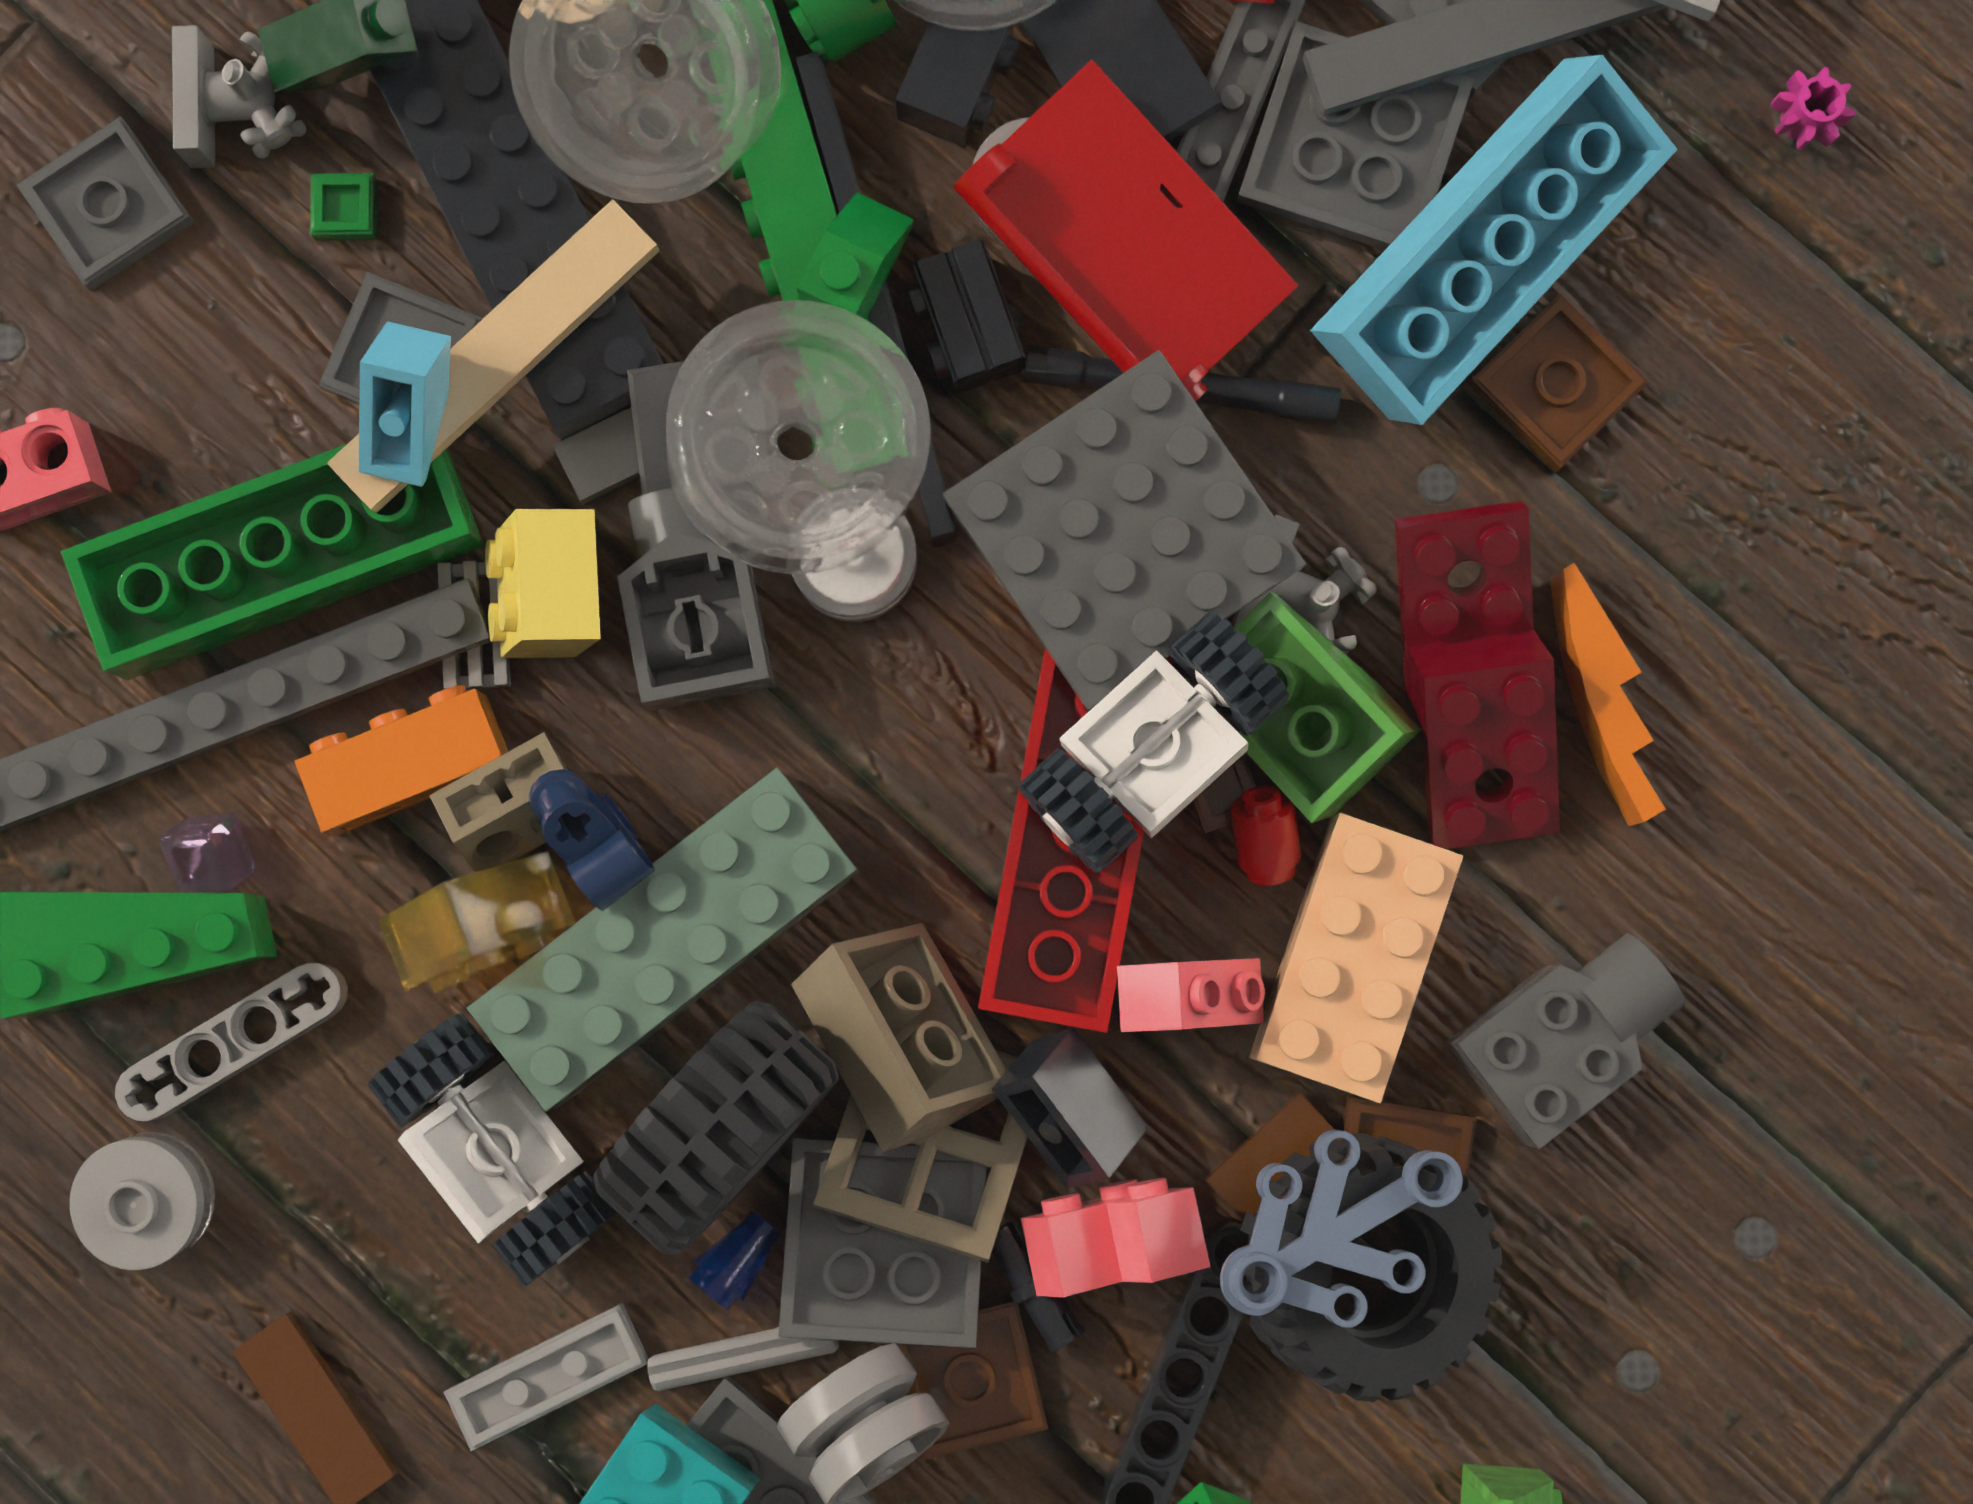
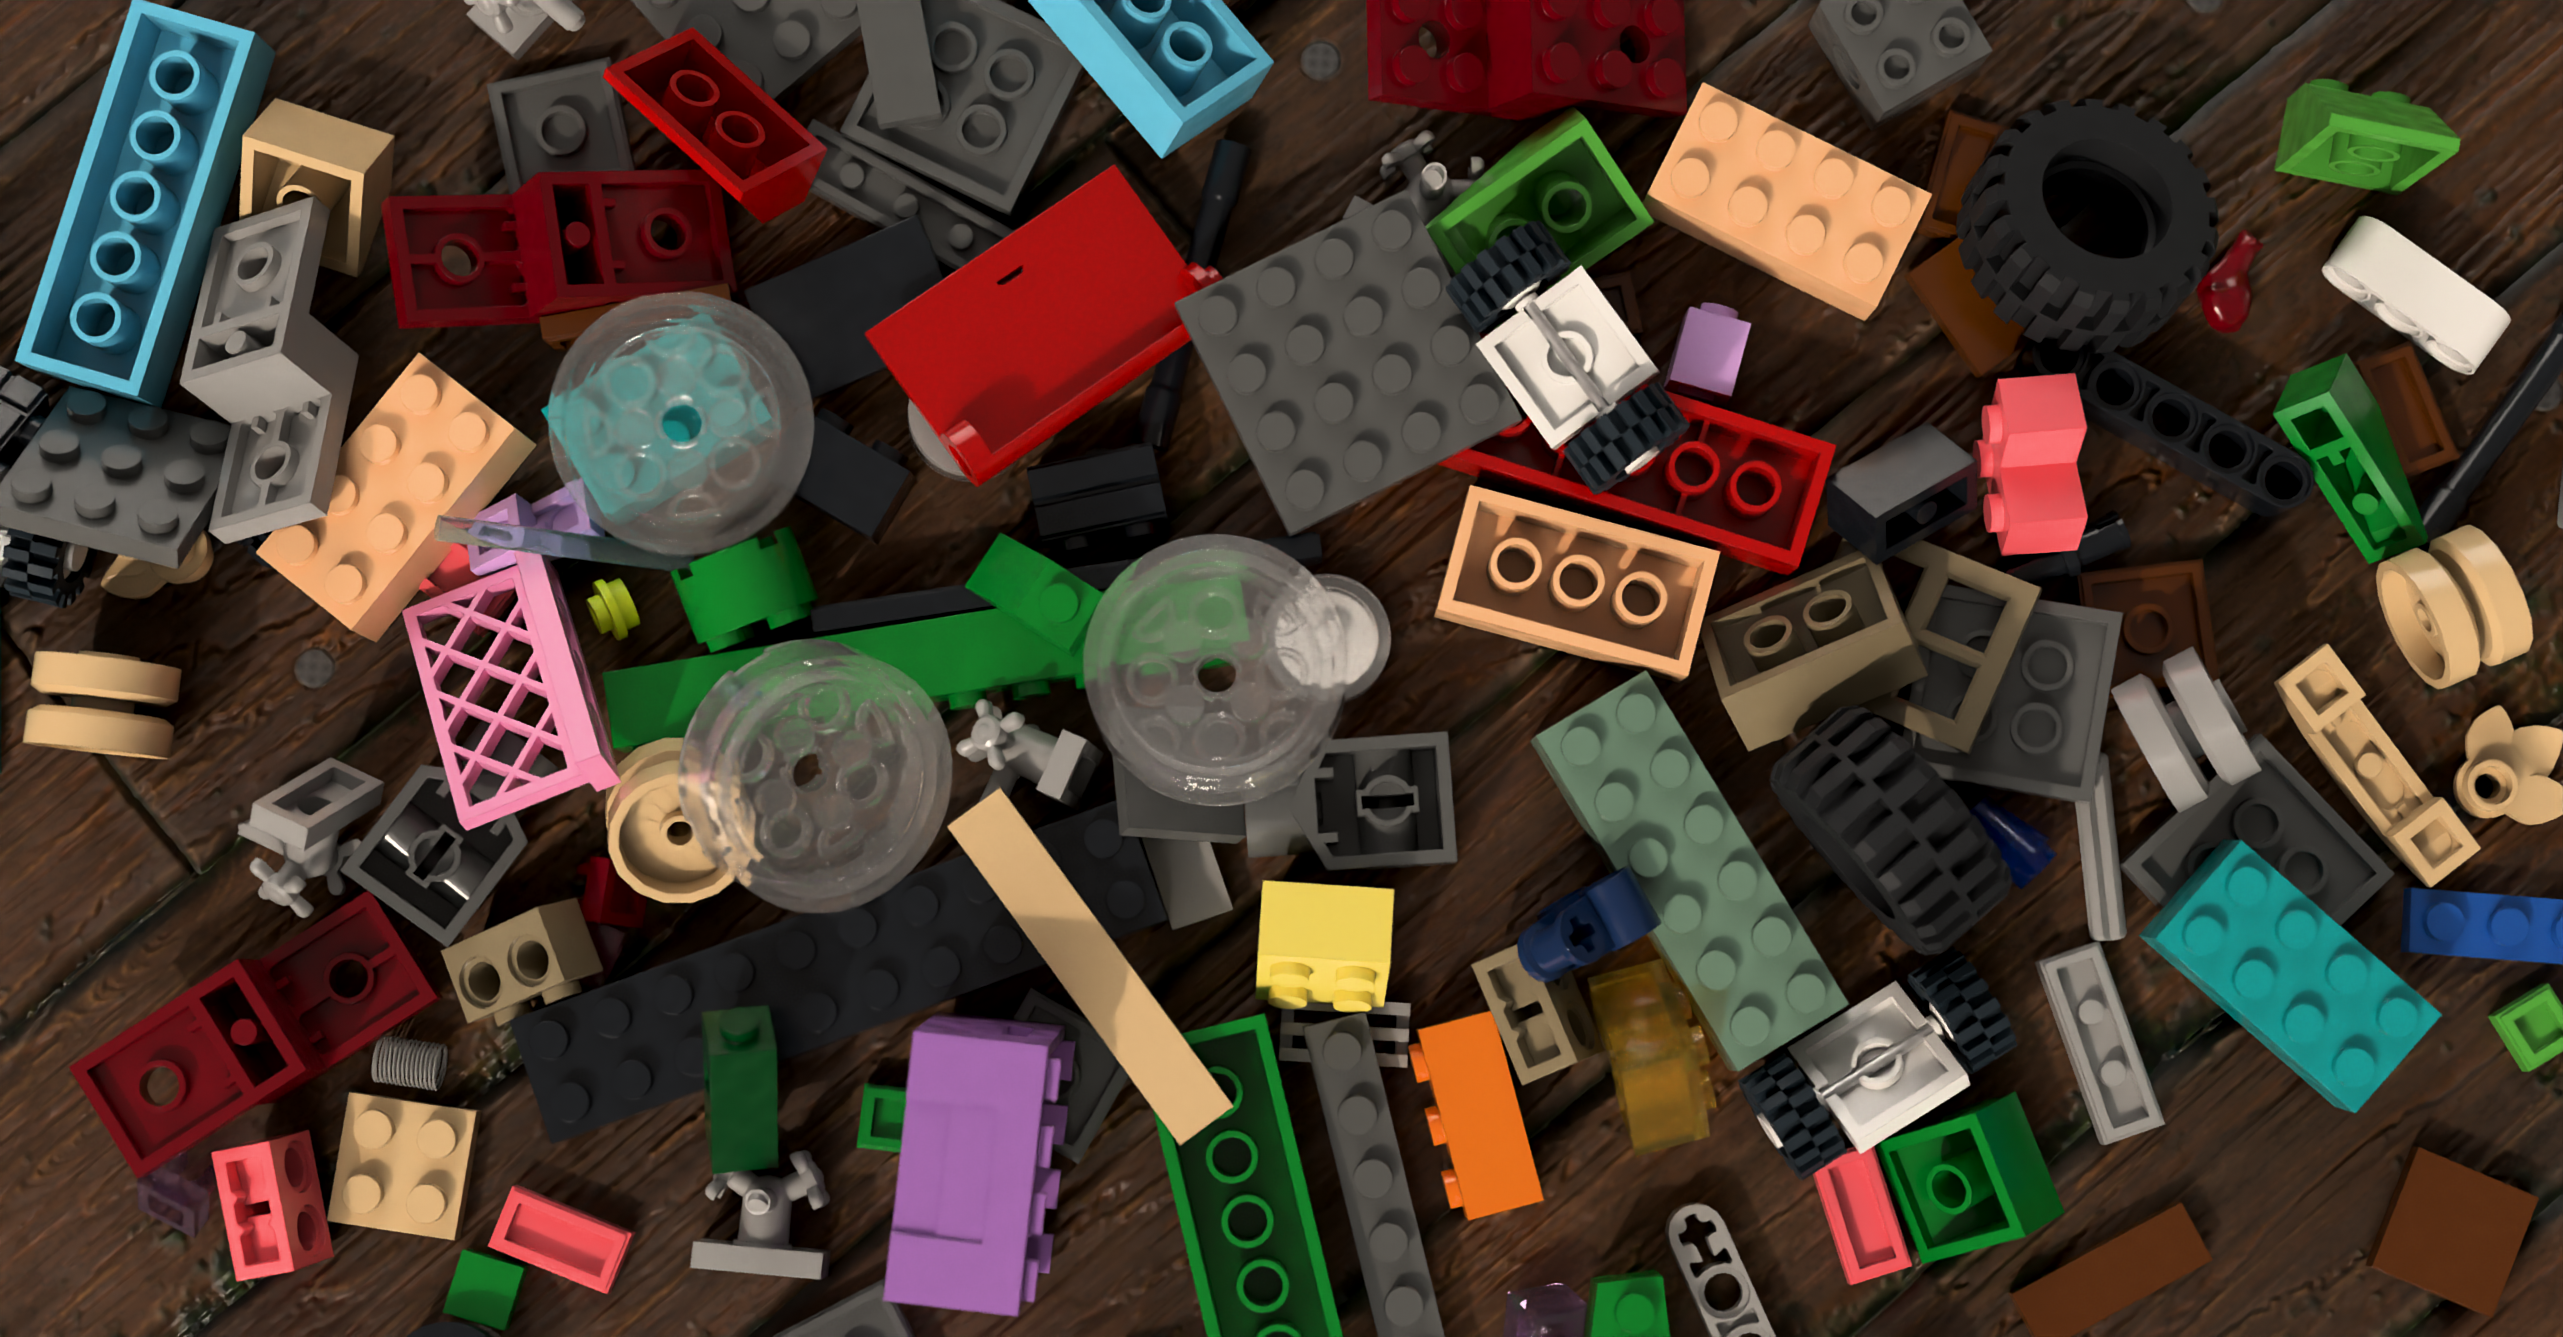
camera: 85 degrees left, 0 degrees up
(284, 267) = (978, 1163): none -> medium lavender container
(345, 1156) = (1861, 1216): none -> coral tile
(393, 1260) = (1970, 1178): none -> green slope
(402, 402) = (1135, 1055): medium azure slope -> none
(694, 304) = (1058, 765): none -> light grey piece
(936, 790) = (1577, 584): none -> light nougat brick
(1190, 995) = (1807, 361): coral brick -> none
(1191, 899) = (1707, 354): none -> lavender brick
(1266, 835) = (1656, 270): red brick -> none
(1328, 1234) = (2063, 249): sand blue plant -> none
(1330, 1424) = (2226, 288): none -> dark red animal

